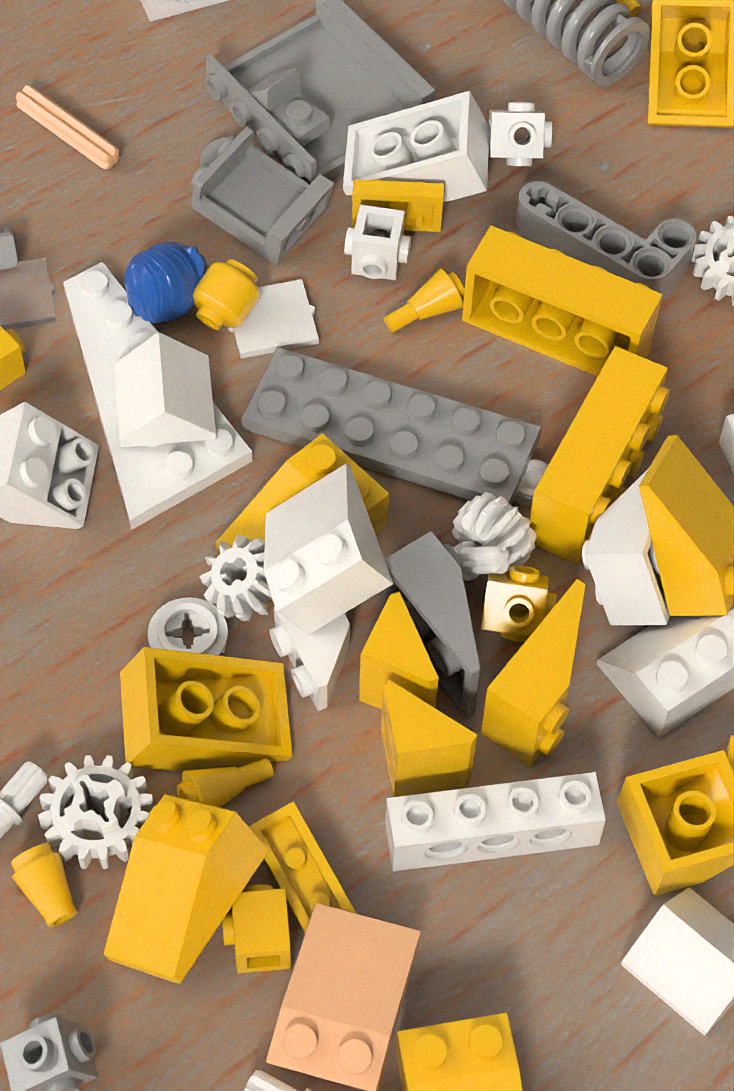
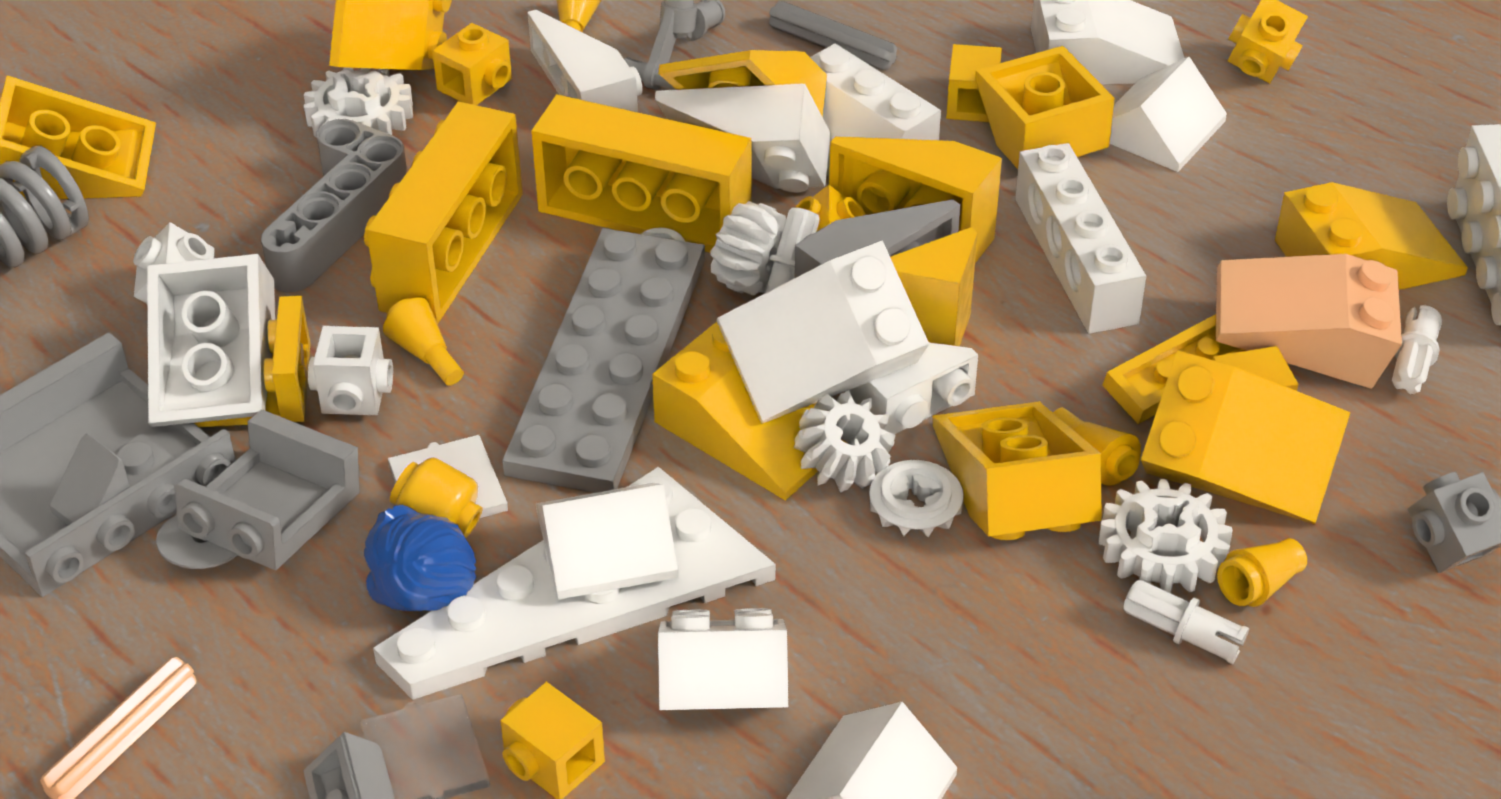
camera: 95 degrees left, 15 degrees down
(423, 745) = (1023, 279): yellow slope -> none

